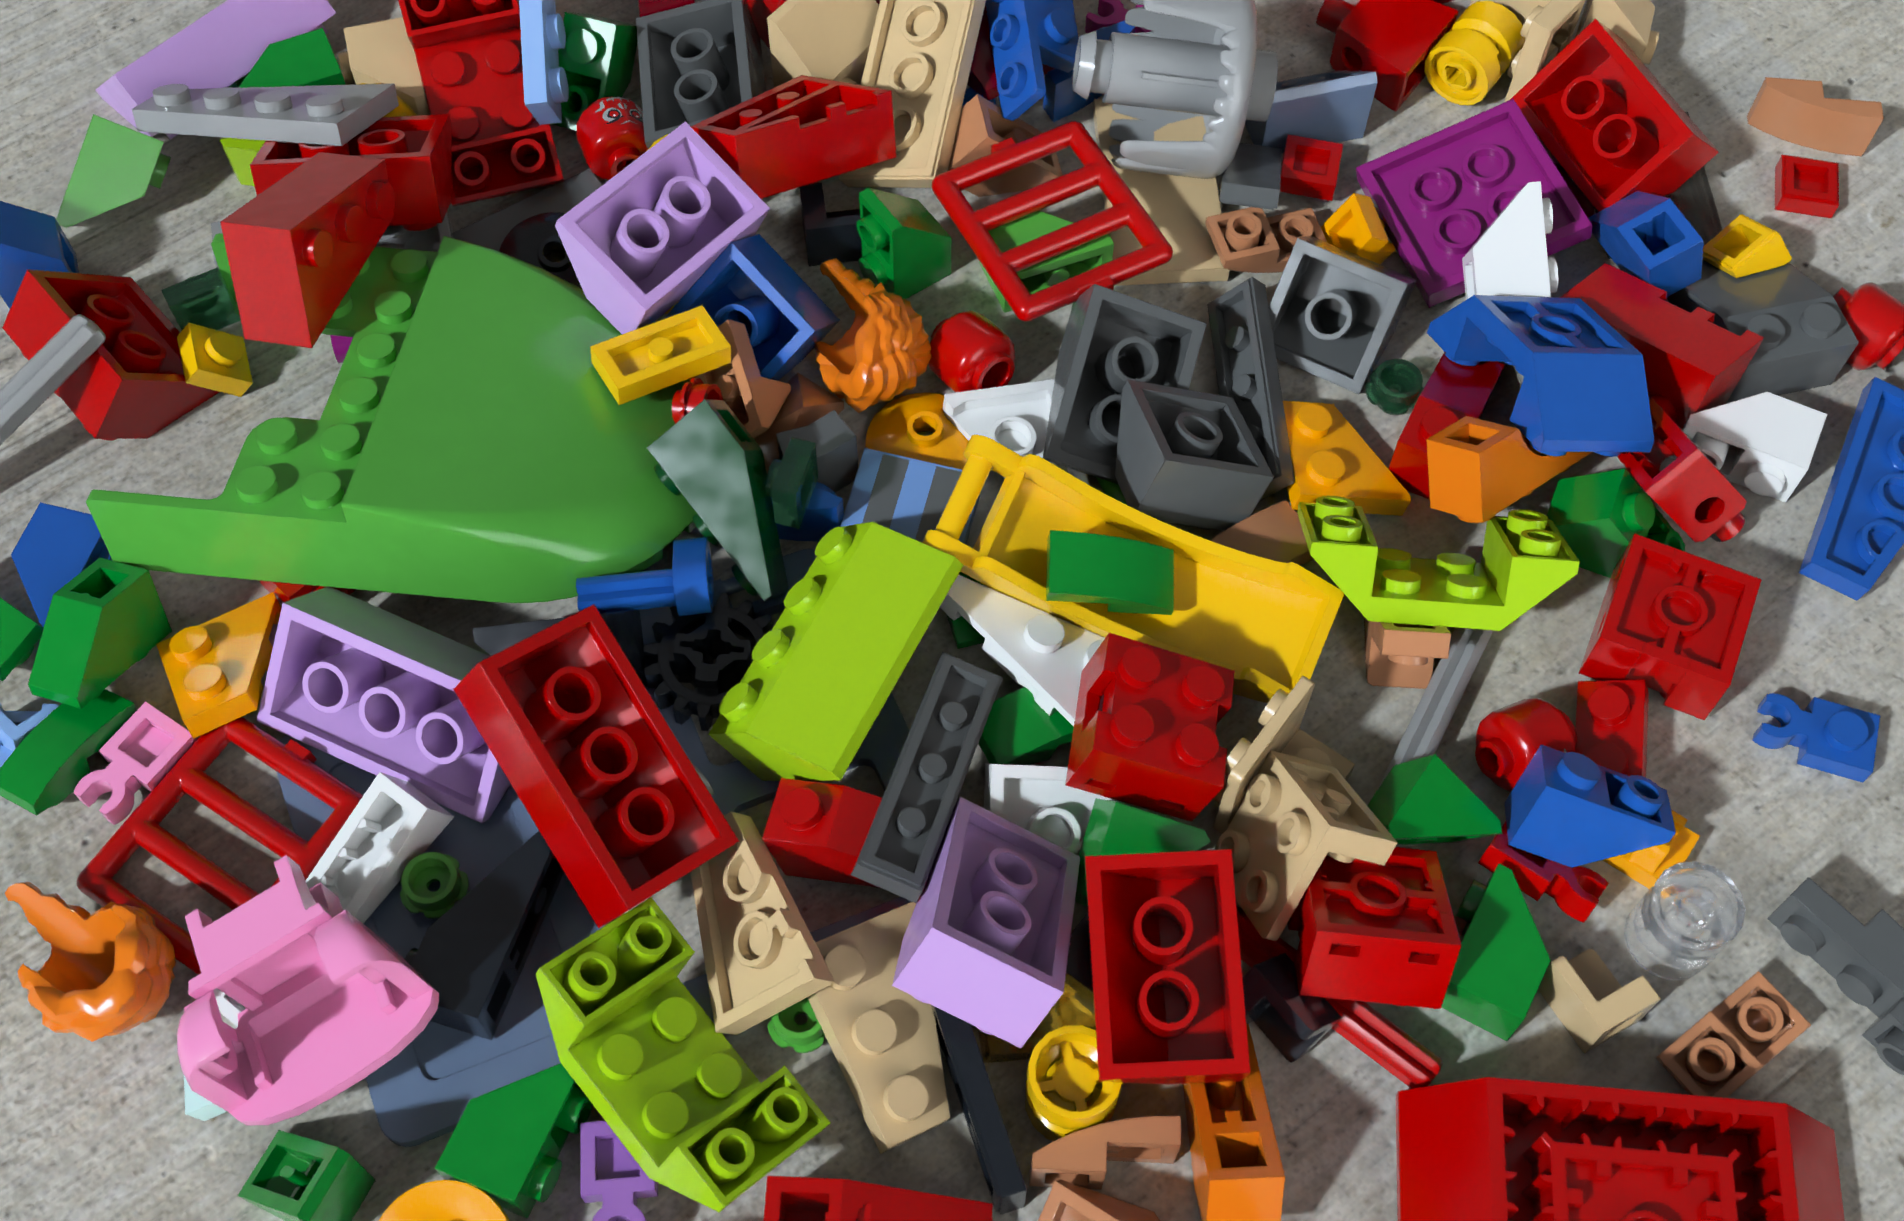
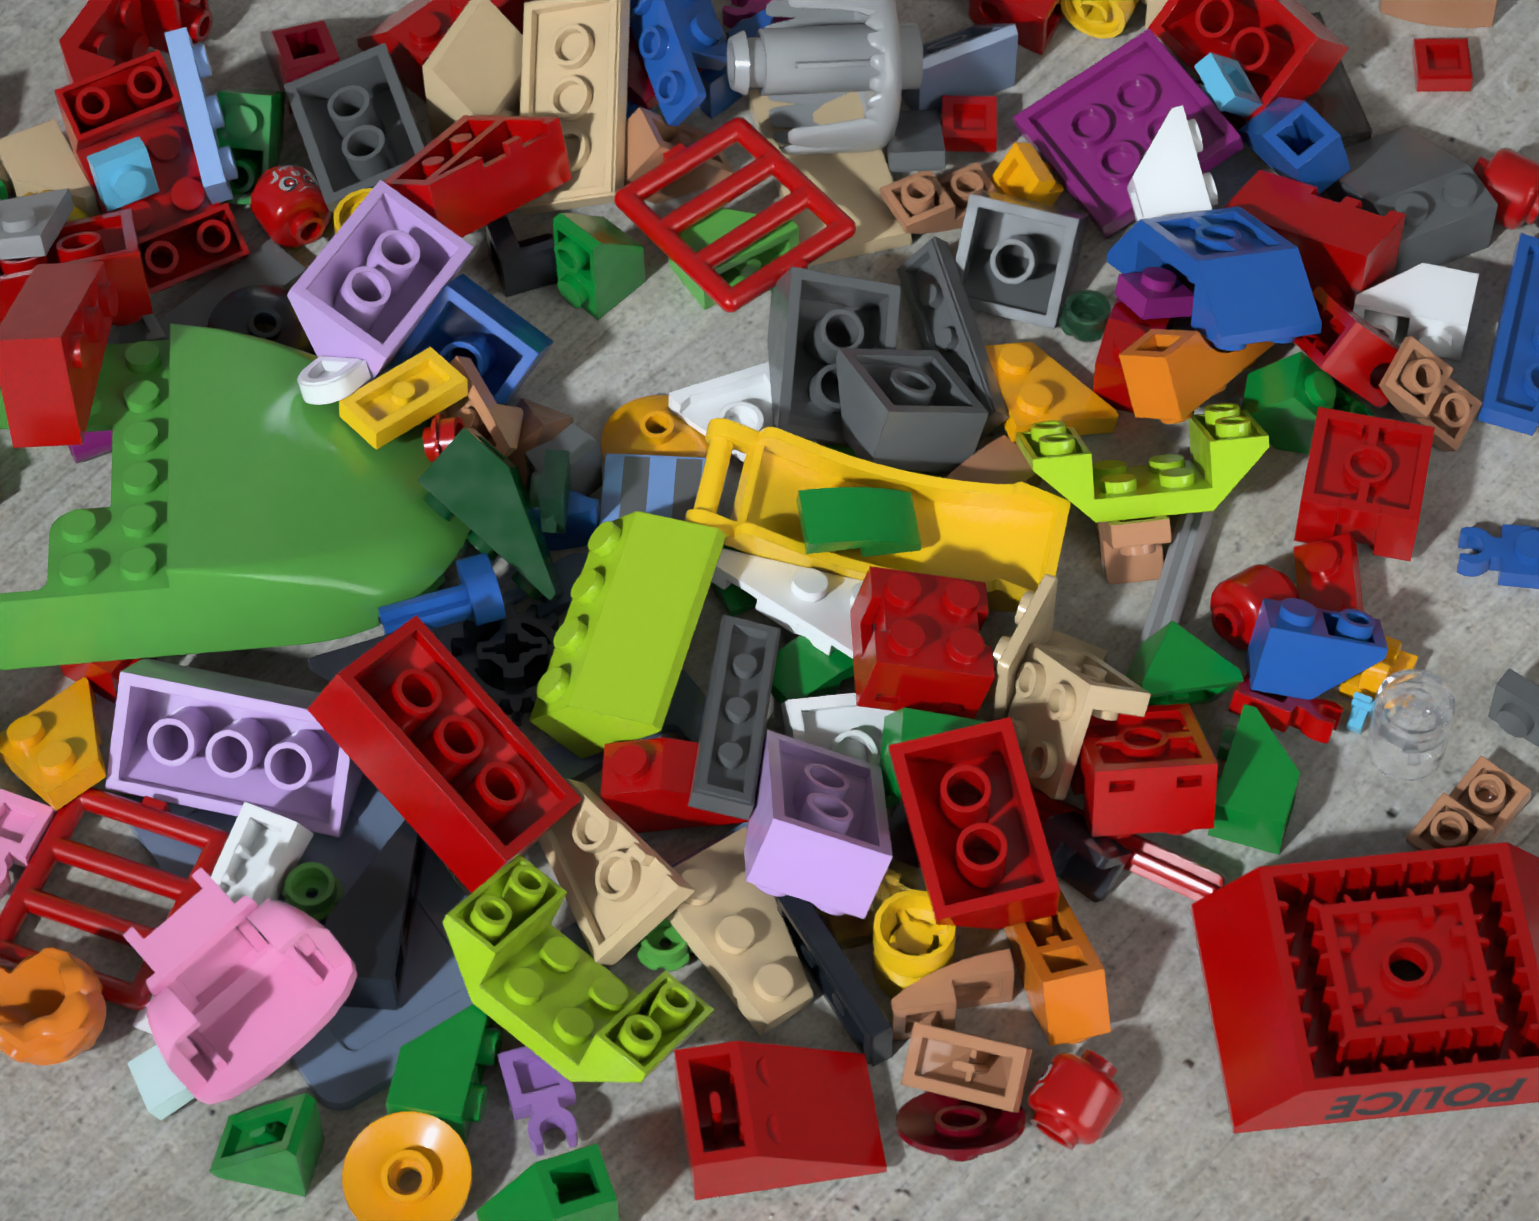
camera: 10 degrees left, 5 degrees down
(451, 78) = (123, 173): none -> medium azure plate
(590, 322) = (332, 379): none -> white tile
(880, 350) = (599, 358): orange hair -> none
(971, 353) = (684, 351): red head -> none
(1474, 377) = (1154, 294): none -> magenta plate
(1585, 170) = (1227, 85): none -> medium azure plate
(1592, 1000) = (1344, 806): tan panel -> none
(1627, 884) = (1361, 708): none -> medium azure piece
(1746, 248) = (1388, 134): yellow slope -> none
(1753, 537) = (1426, 395): none -> nougat slope

